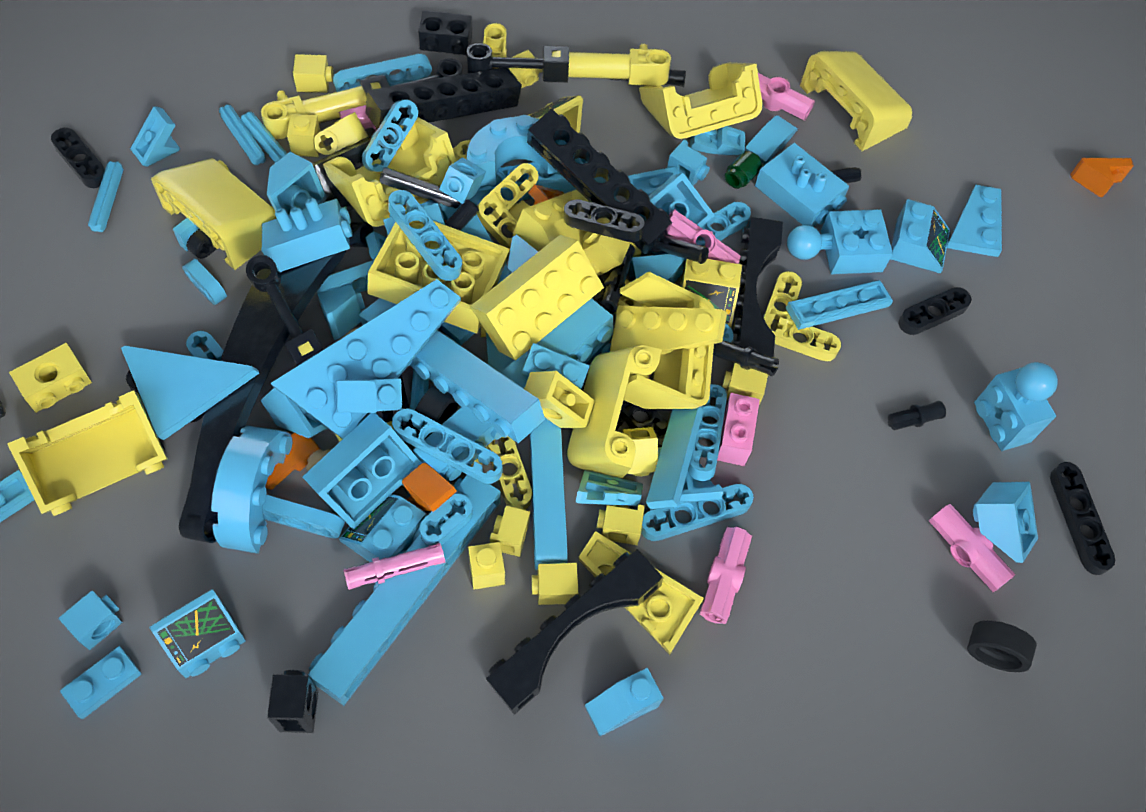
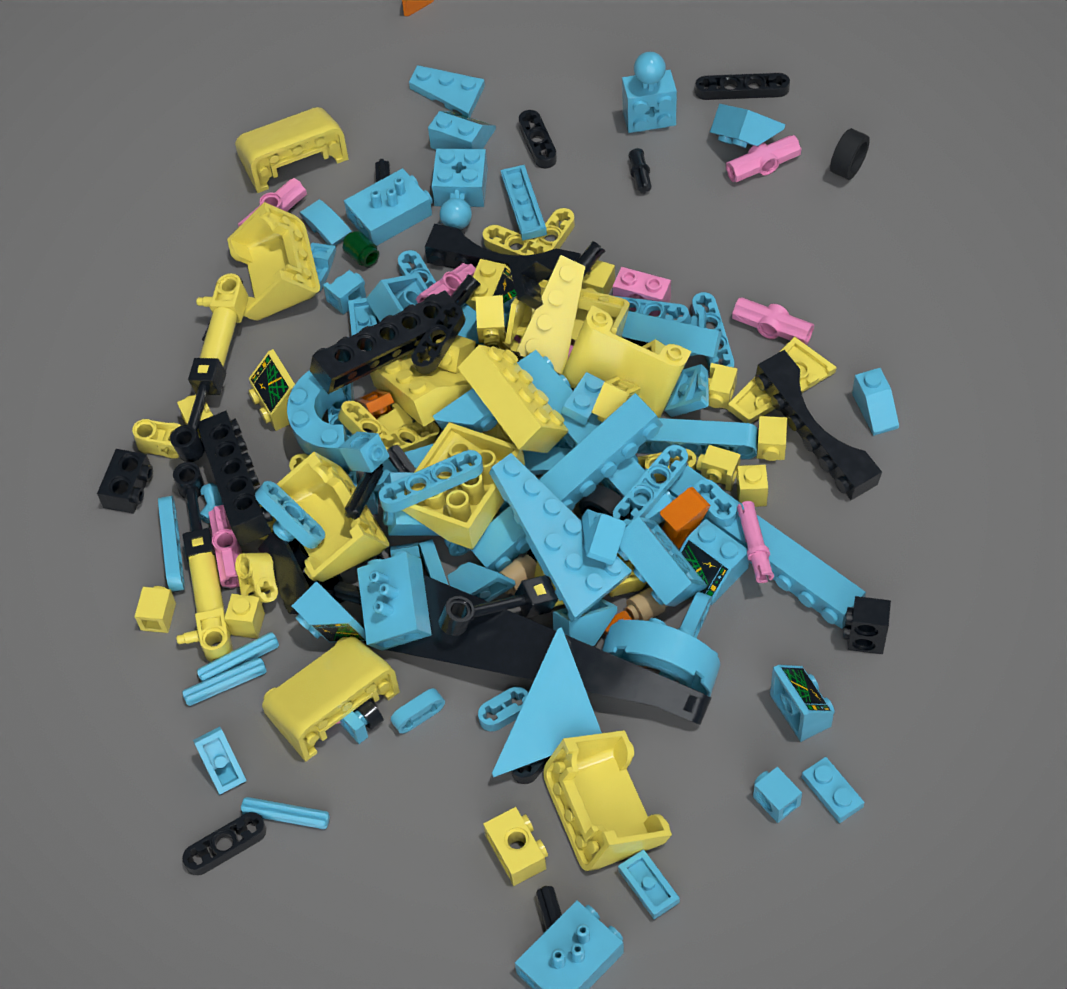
camera: 70 degrees left, 5 degrees down
(642, 259) = (490, 319): none -> light yellow brick
(689, 287) = (526, 280): none -> black slope

